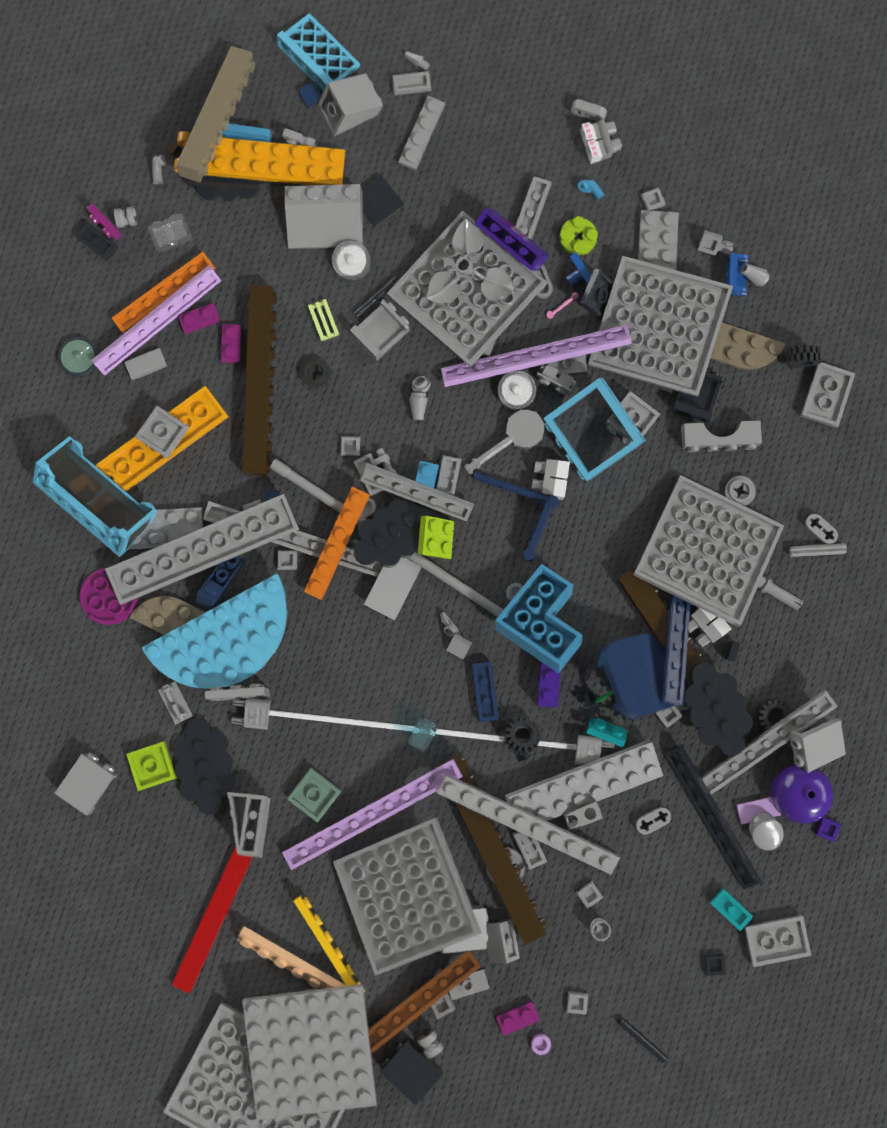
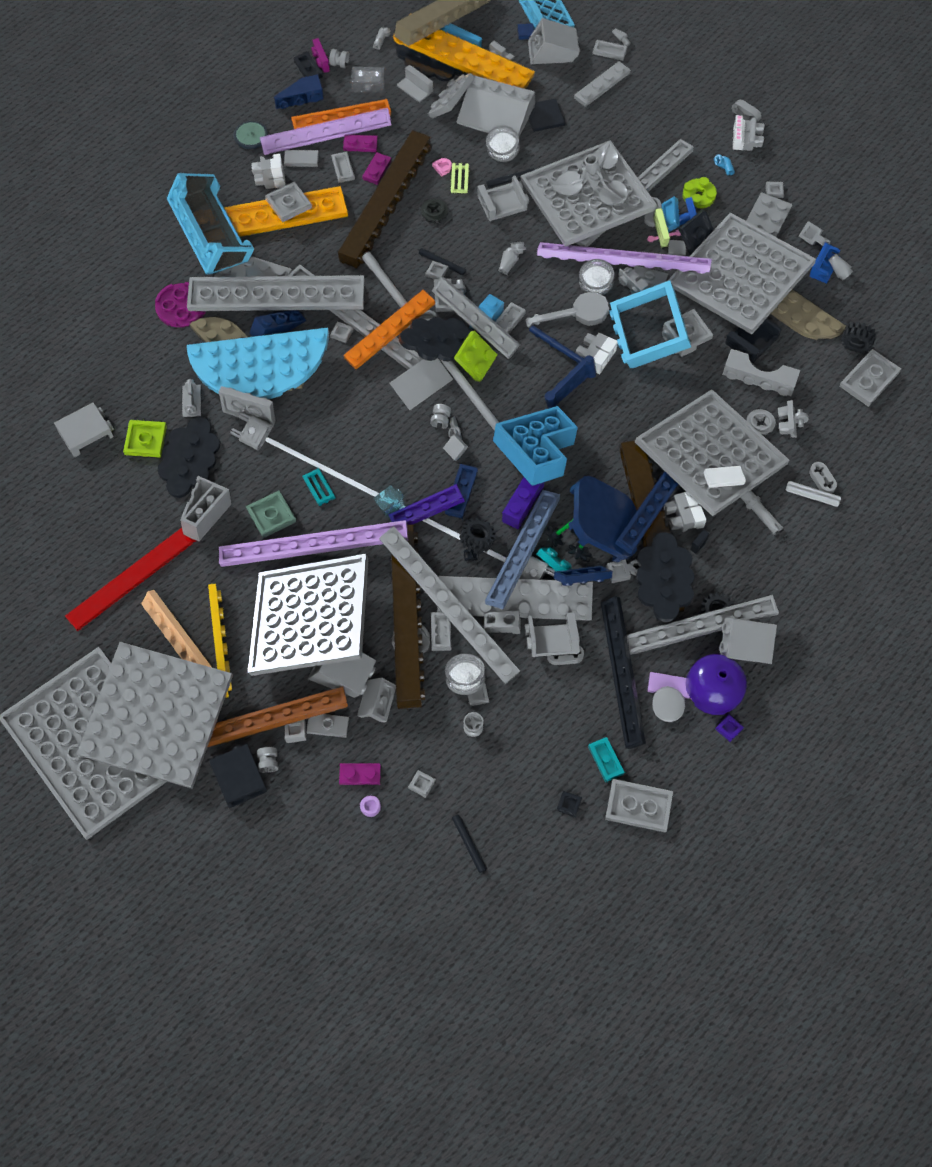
camera: 25 degrees right, 20 degrees down
(107, 278) = (302, 91): none -> dark blue slope
(125, 403) = (269, 172): none -> hips
(194, 356) = (342, 167): none -> light grey tile
(223, 218) = (416, 84): none -> light grey panel
(270, 221) = (451, 95): none -> light grey plate
(299, 311) = (442, 166): none -> bright pink tile
(350, 432) = (436, 258): none -> black bar
(358, 754) = (324, 499): none -> teal tile
(427, 614) = (441, 414): none -> light grey wheel
(460, 726) = (429, 506): none -> dark purple tile
(512, 239) = (641, 168): dark purple brick -> none
(559, 302) = (661, 227): none -> yellowish green tile
(560, 279) = (671, 213): none -> dark azure tile
(571, 883) = (465, 674): none -> clear piece
(572, 736) = (522, 550): none -> sand blue tile
(581, 317) = (676, 248): none -> light grey tile
(636, 812) = (553, 638): none -> light grey panel
(640, 738) = (583, 575): none -> dark blue plate
(734, 580) = (724, 476): none -> white tile
(764, 469) = (789, 412): none -> light grey hips

